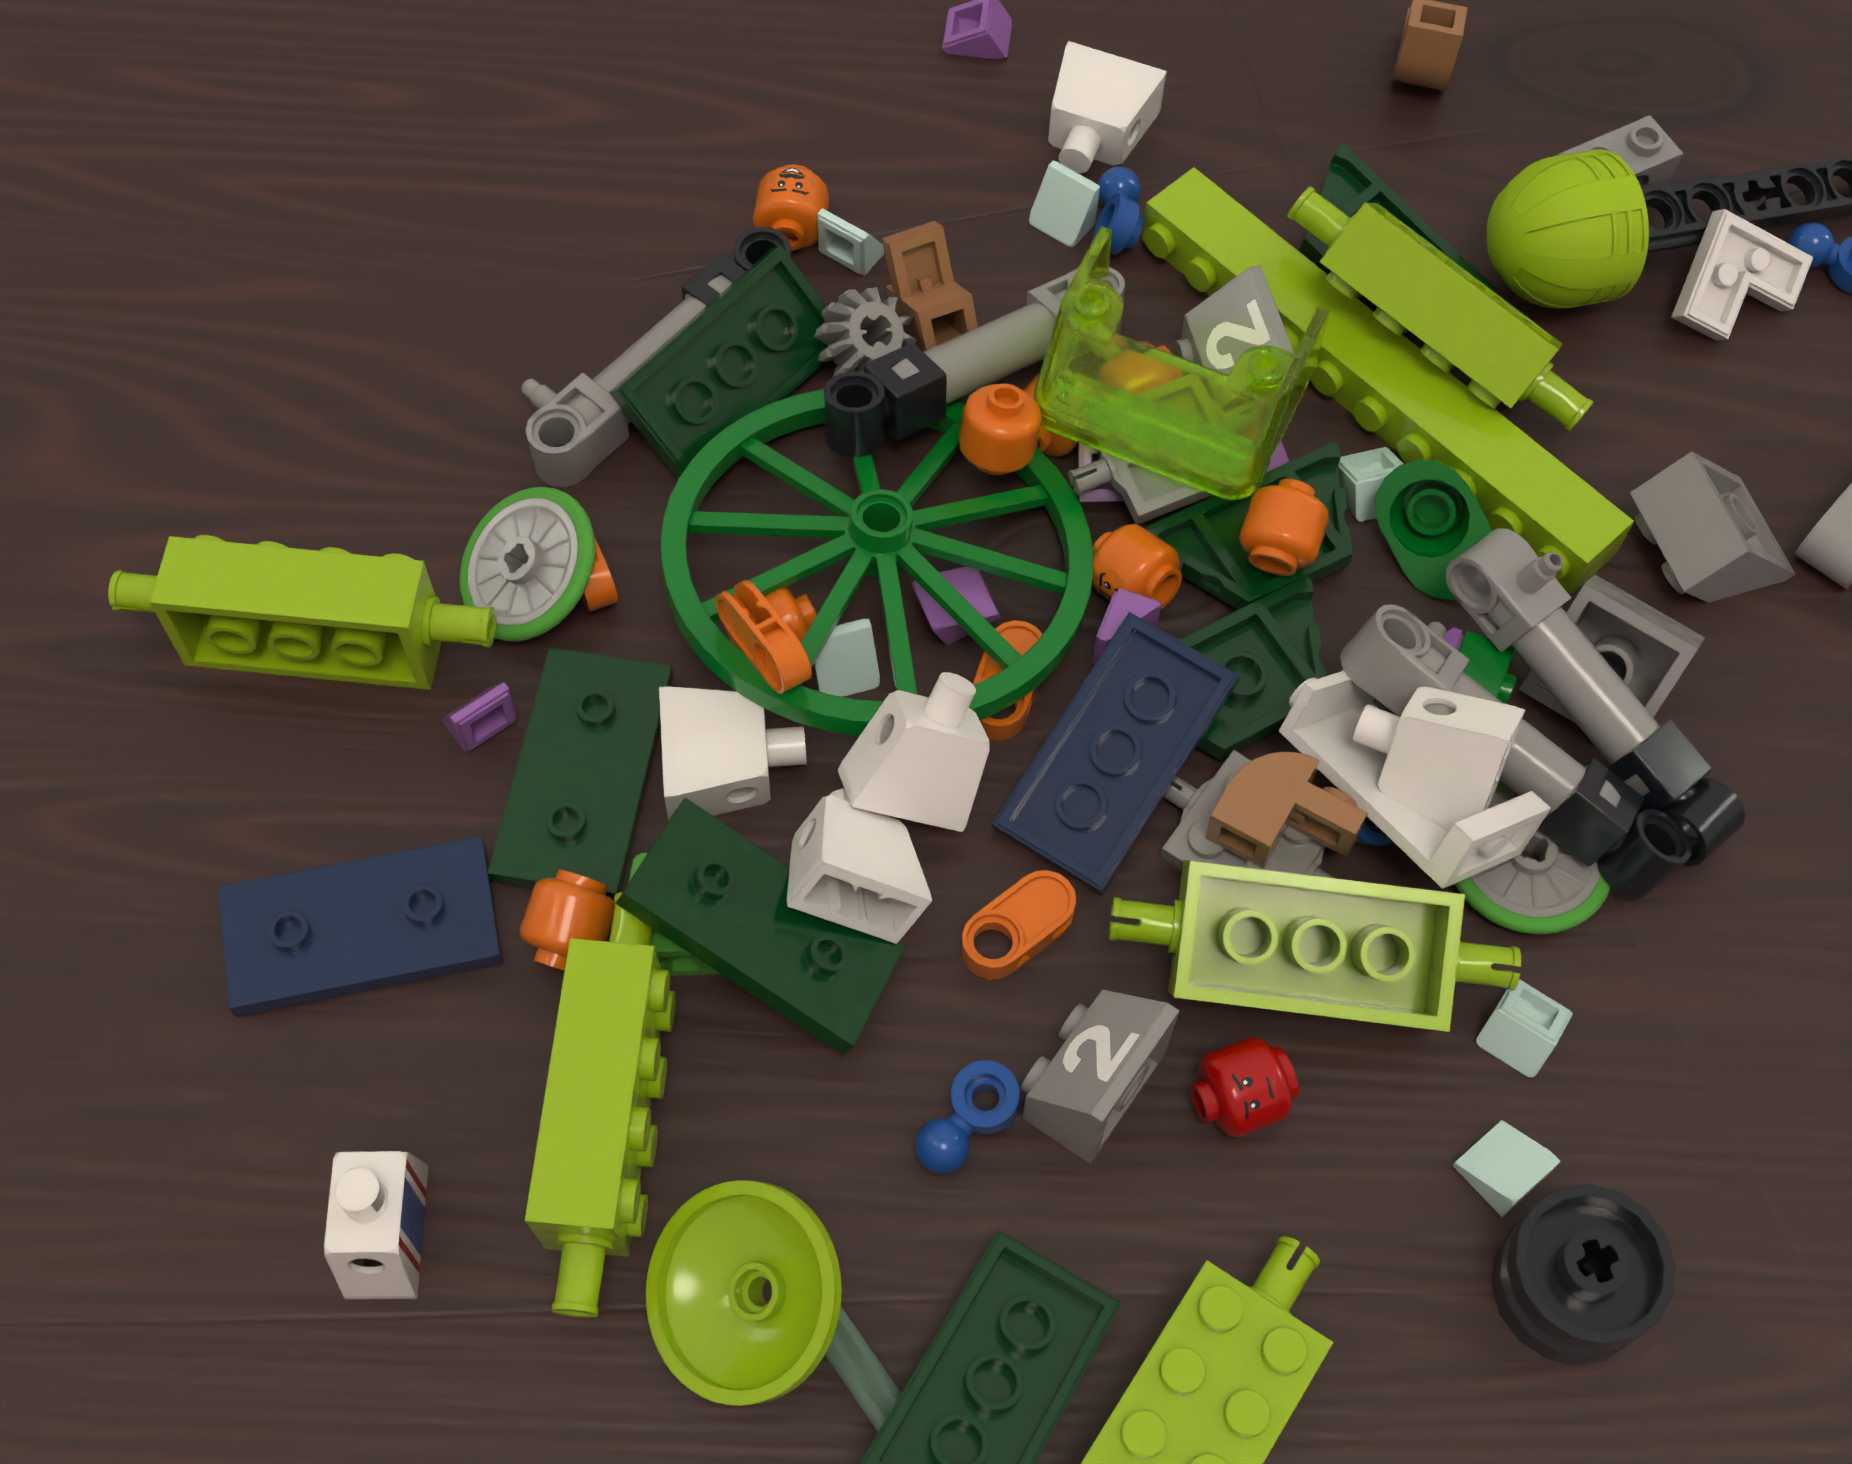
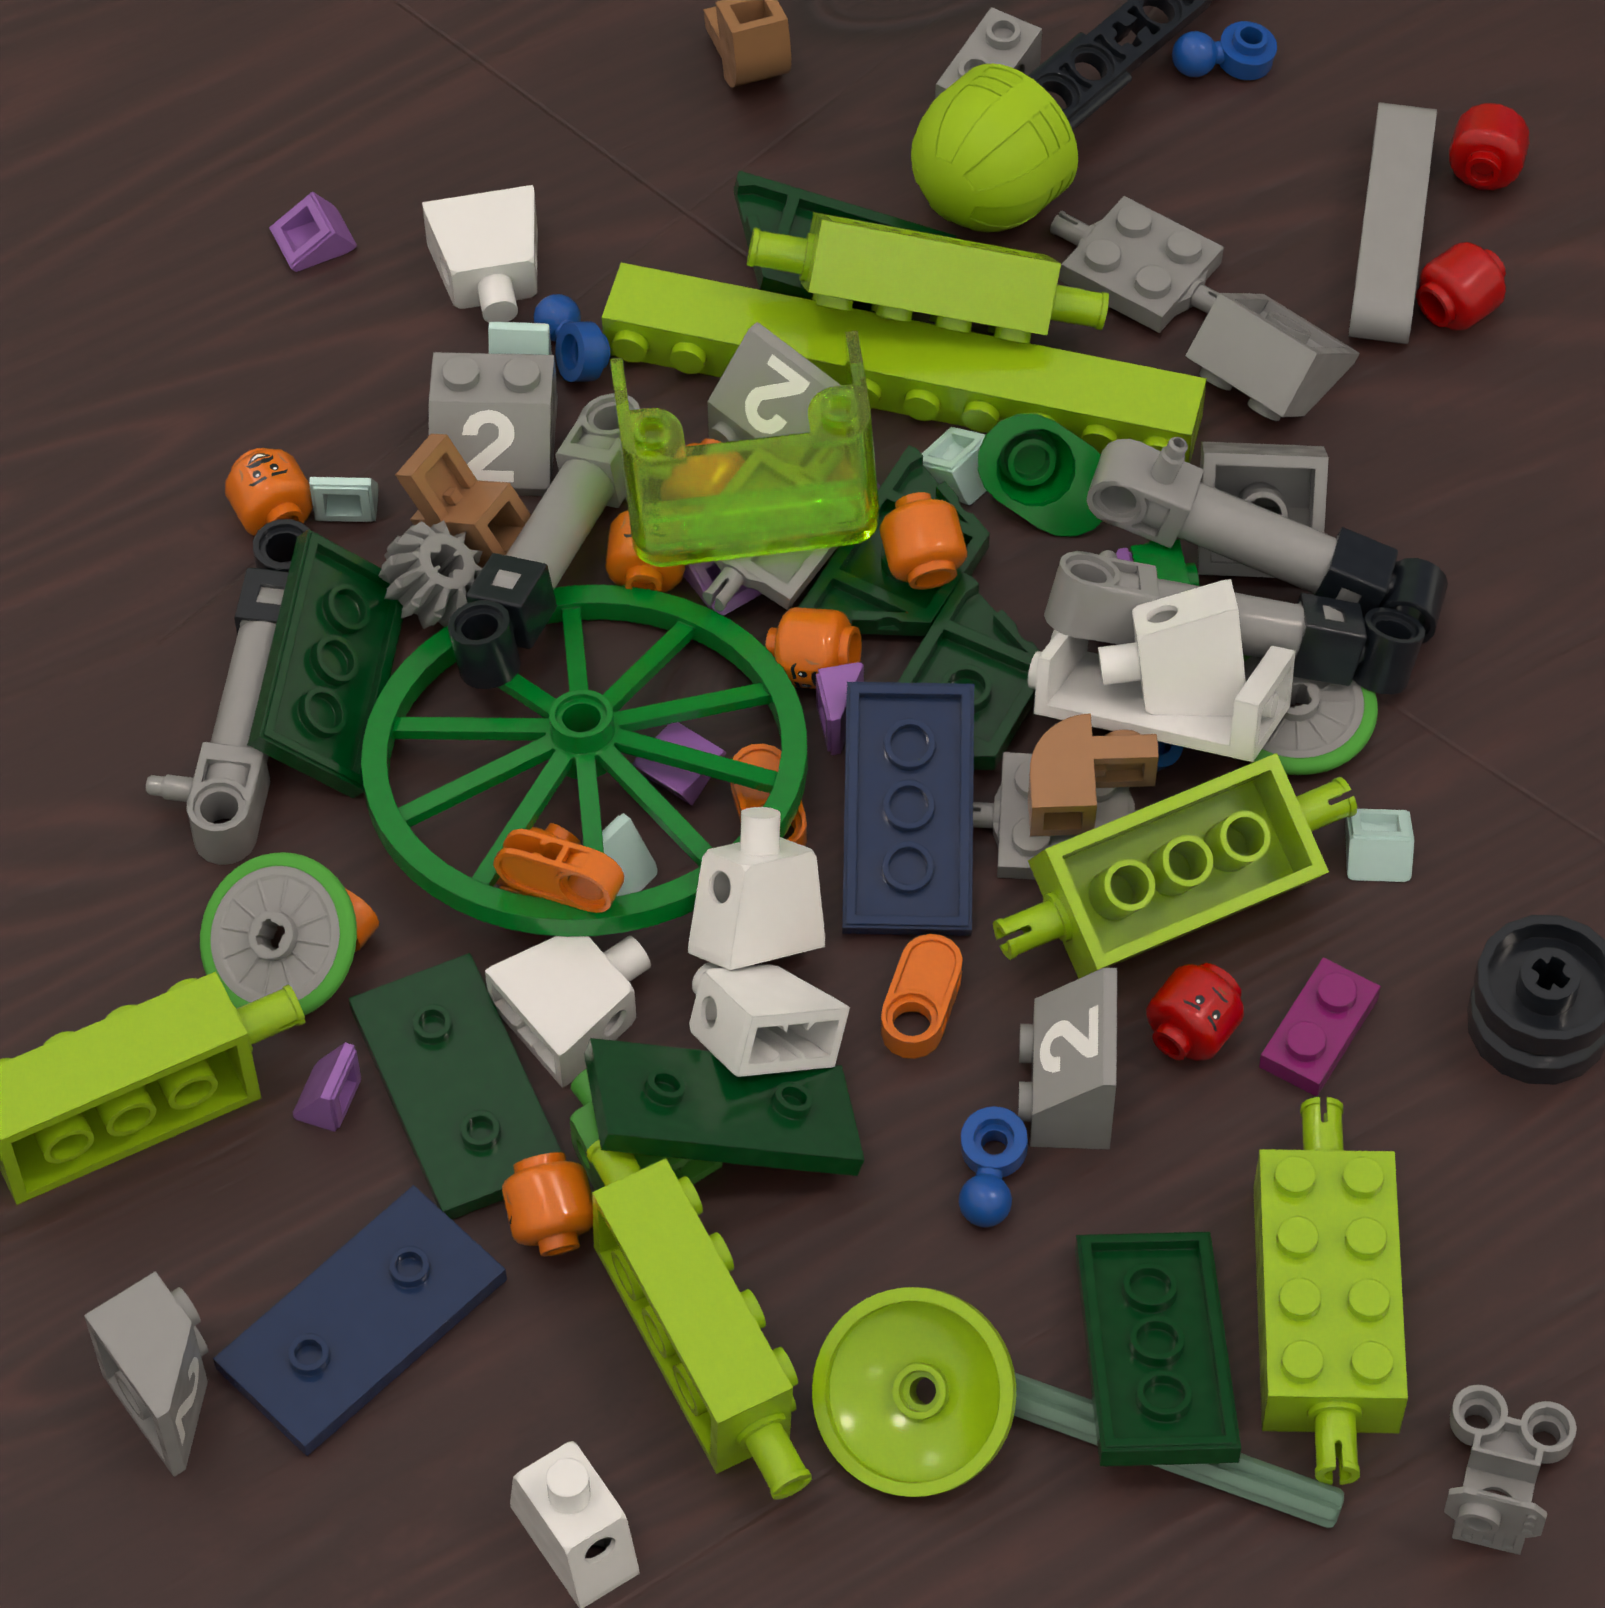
camera: 30 degrees left, 5 degrees down
(148, 869) = (154, 1363): none -> light grey slope
(1000, 428) = (621, 588): orange head -> none
(1008, 238) = (498, 415): none -> light grey slope
(1355, 1167) = (1319, 1026): none -> magenta plate
(1505, 1166) = (1434, 957): light aqua slope -> none
(1644, 394) = (1141, 261): none -> light grey plate
(1737, 261) = (1144, 105): white tile -> none

